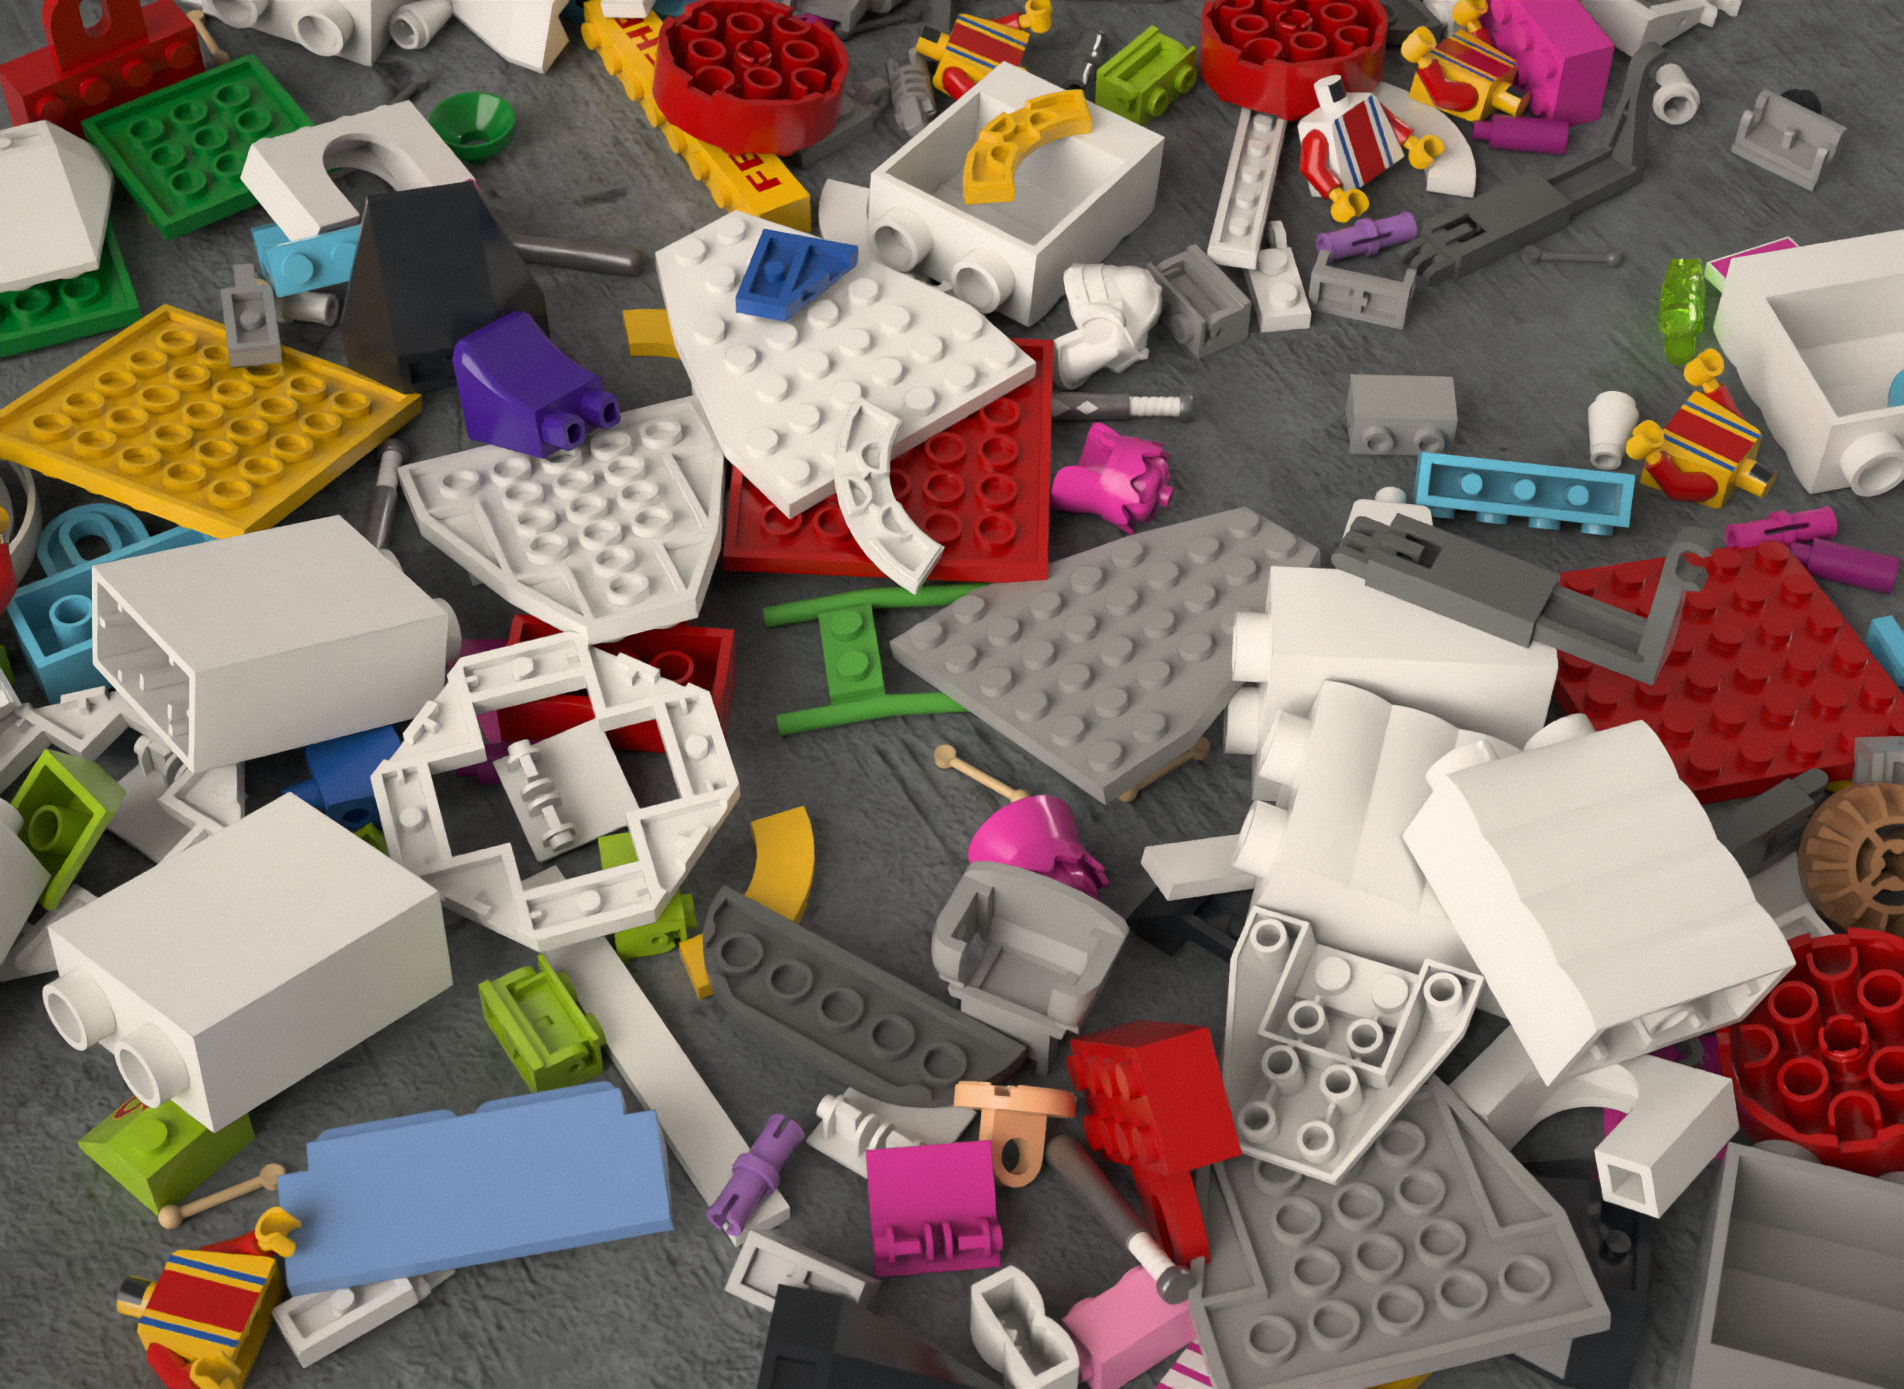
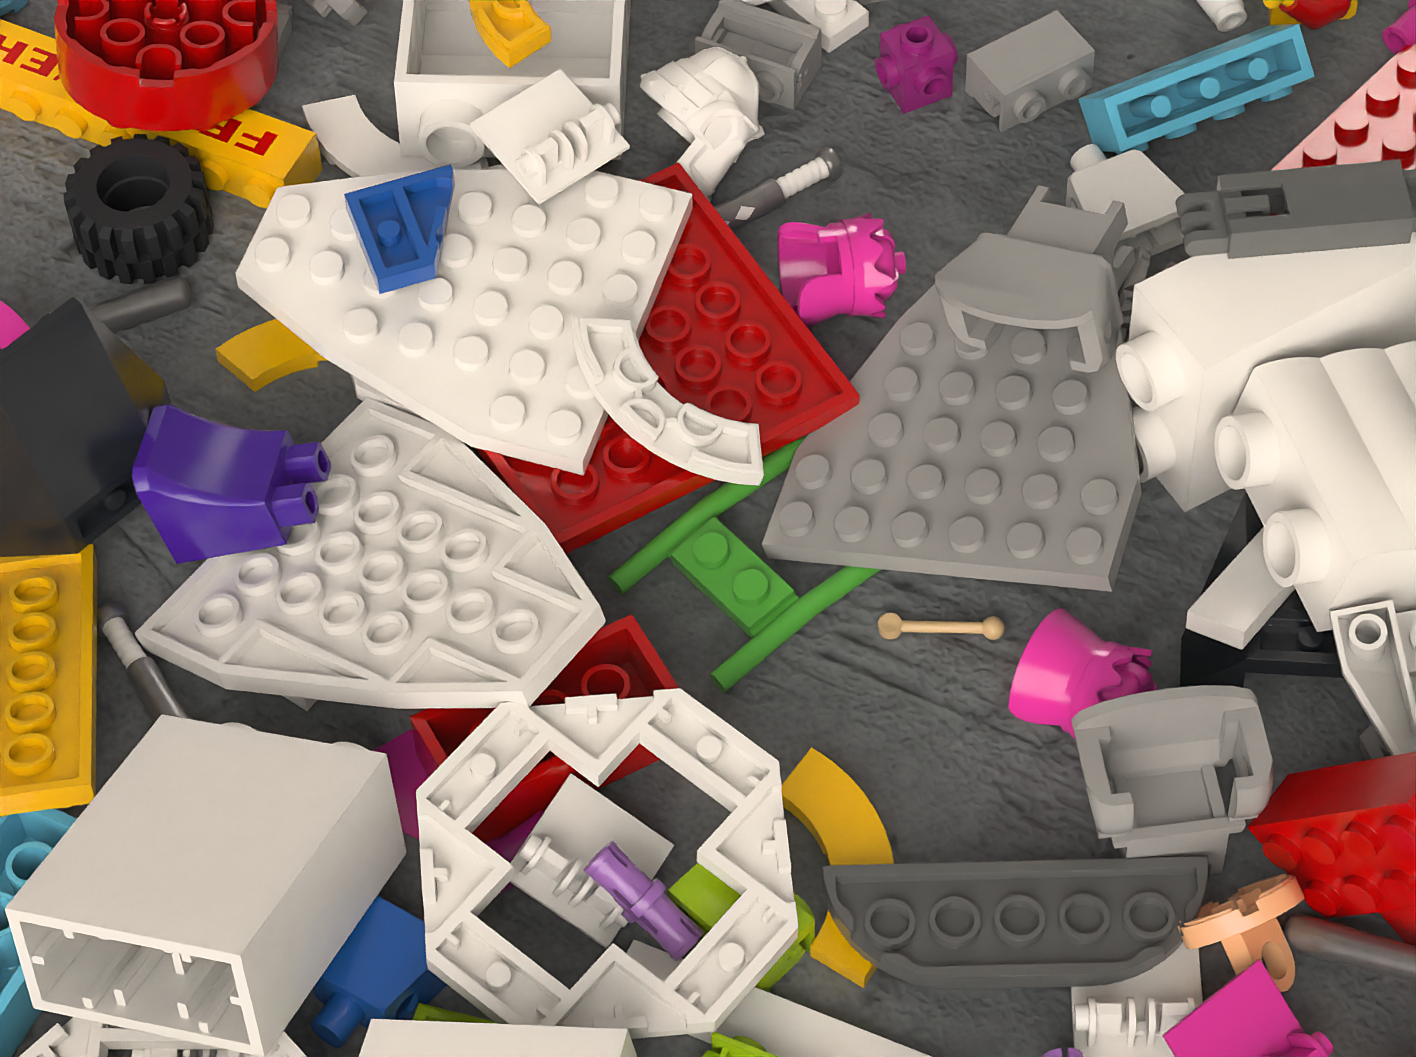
camera: 30 degrees left, 5 degrees up
(569, 826) = (643, 900): none -> medium lavender pin
(646, 188) = (131, 177): none -> black tyre
(953, 264) = (551, 135): none -> white hinge
(1228, 538) = (1043, 275): none -> light grey piece
(1312, 356) = (916, 63): none -> magenta brick

